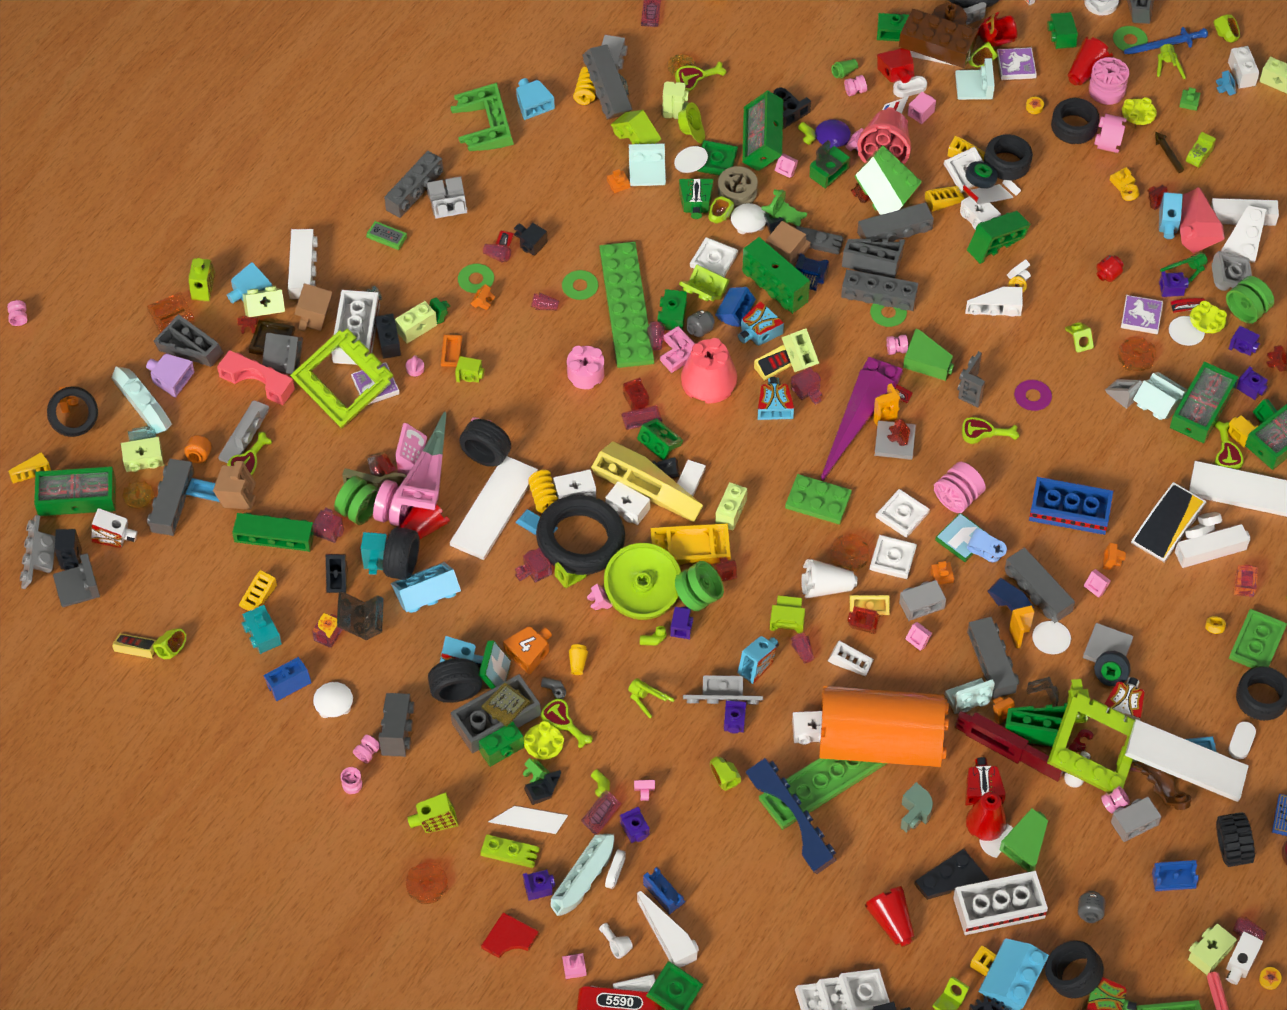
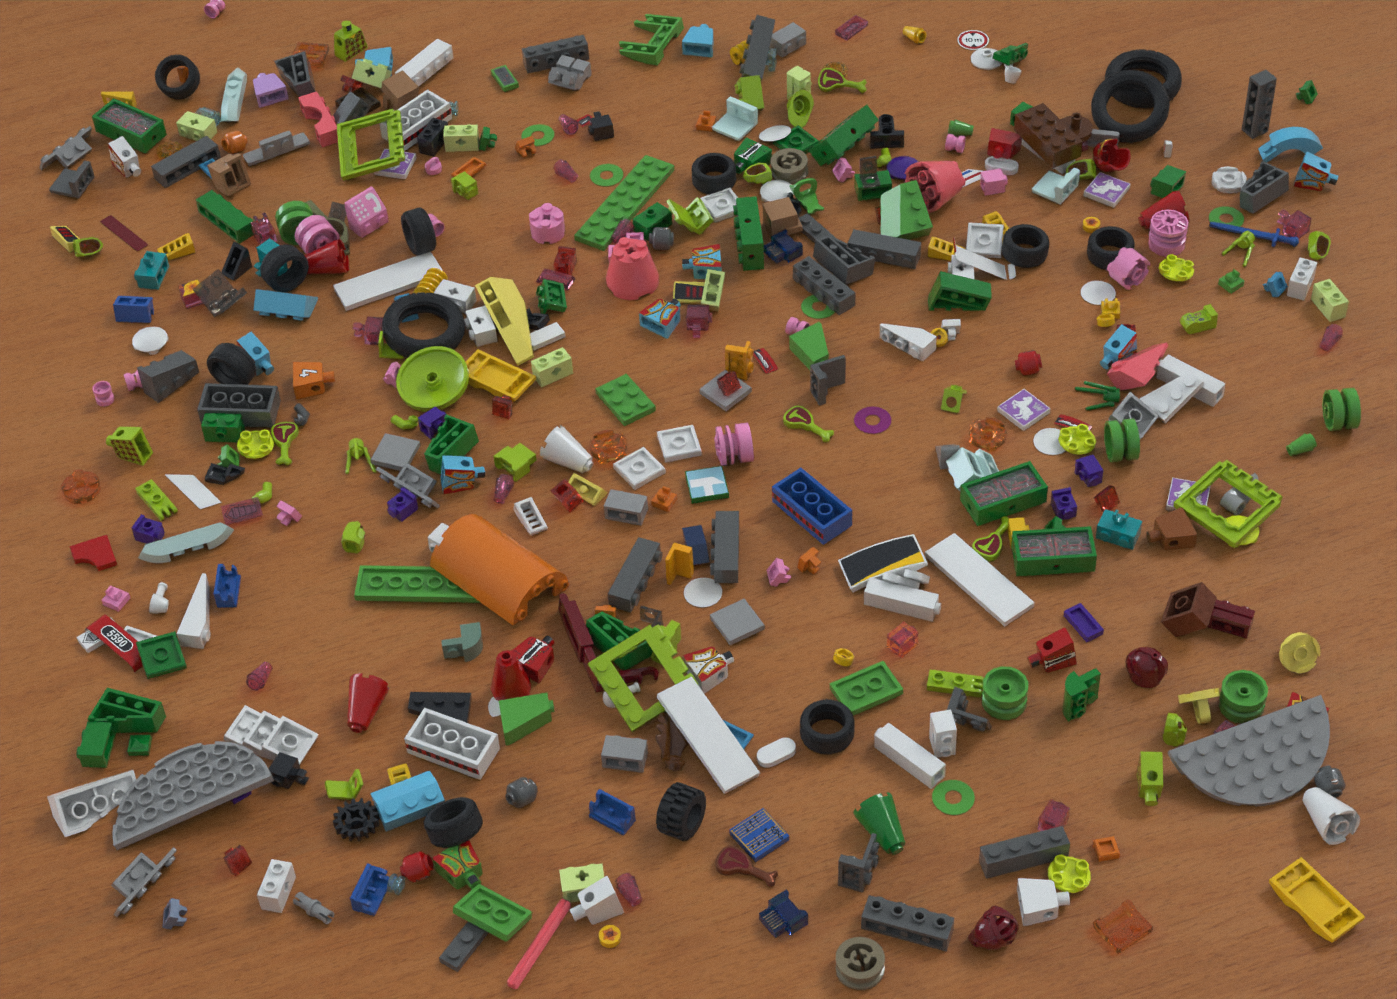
camera: 40 degrees right, 10 degrees down
(67, 548) = (84, 149): black brick -> none
(184, 606) = (124, 233): none -> dark red sticker
(250, 457) = (257, 167): lime piece -> none
(384, 465) = (336, 209): clear red tile -> none
(423, 481) = (342, 228): bright pink plate -> none
(494, 665) = (270, 372): tile -> none
(505, 704) = (245, 398): piece -> none
(577, 657) = (336, 405): yellow cone -> none
(615, 869) = (209, 552): white tile -> none
(629, 820) = (254, 532): dark purple brick -> none
(677, 671) = (395, 452): none -> light grey tile
(684, 217) = (713, 163): none -> black tyre
(699, 586) = (465, 400): bright green wheel -> none
(721, 631) = (453, 439): none -> green wedge
(735, 306) = (702, 239): blue brick -> none
(777, 952) = (258, 677): none -> clear pink cone
(814, 849) = (358, 622): dark blue arch -> none
(869, 385) = (762, 342): magenta plate -> none
(918, 636) = (597, 529): bright pink tile -> none
(970, 695) = (588, 590): light aqua bracket -> none
(981, 174) = (987, 245): black wheel -> none
(985, 546) = (712, 495): light blue piece -> none
(1096, 168) = (1097, 291): none -> white sticker
(1112, 661) = (720, 634): black wheel -> none
(1115, 799) = (625, 727): bright pink wheel -> none
(1160, 139) = (1171, 310): dark brown piece -> none
(1173, 284) = (1071, 400): dark purple brick -> none
(1192, 16) = (1294, 225): none -> clear pink brick

